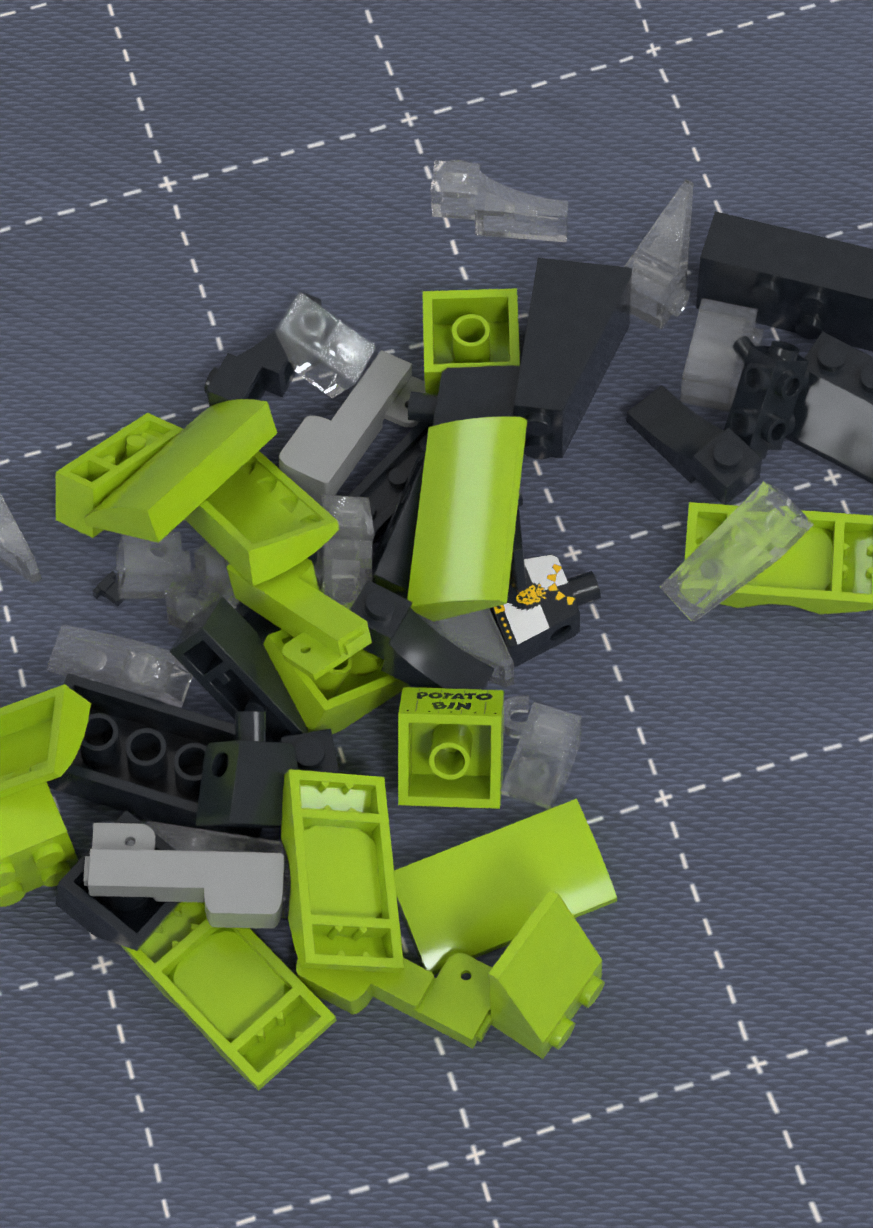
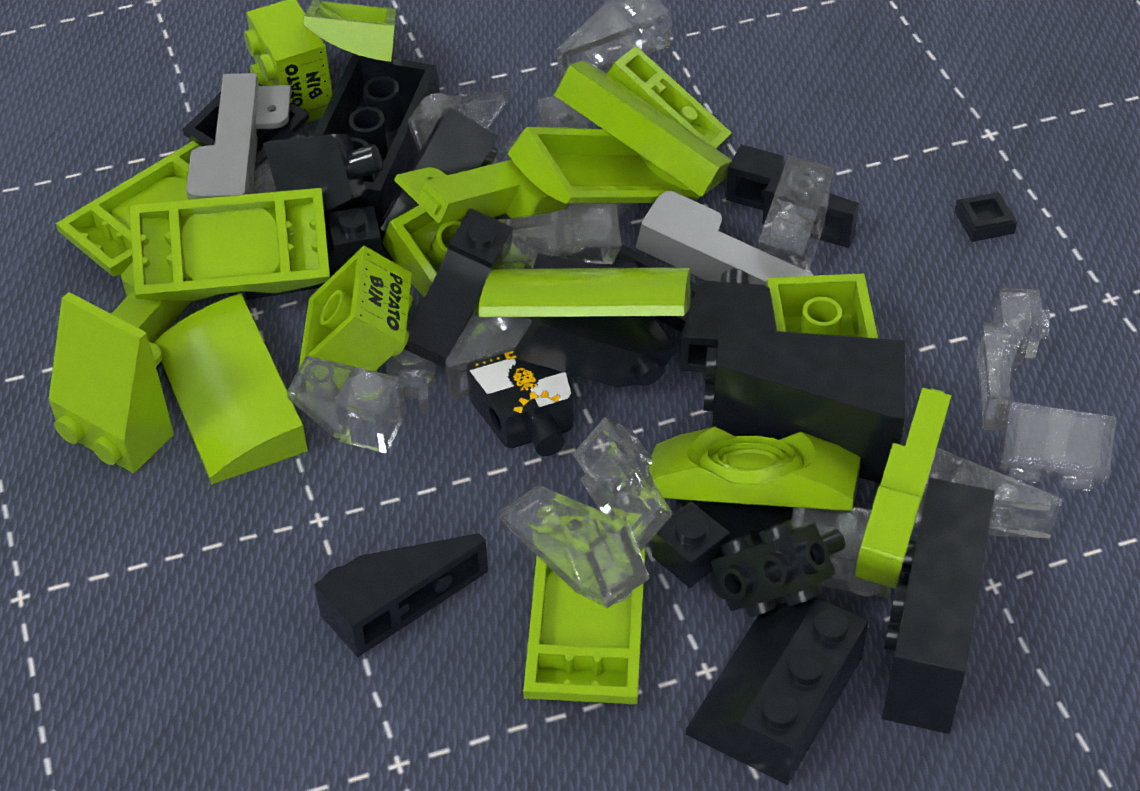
camera: 85 degrees right, 15 degrees down
(296, 201) = (985, 216): none -> black tile
(614, 178) = (1056, 445): none -> clear brick
(644, 416) = (756, 470): none -> lime slope
(665, 512) = (621, 480): none -> clear slope
(733, 293) = (902, 493): none -> lime piece
(771, 725) = (396, 586): none -> black slope

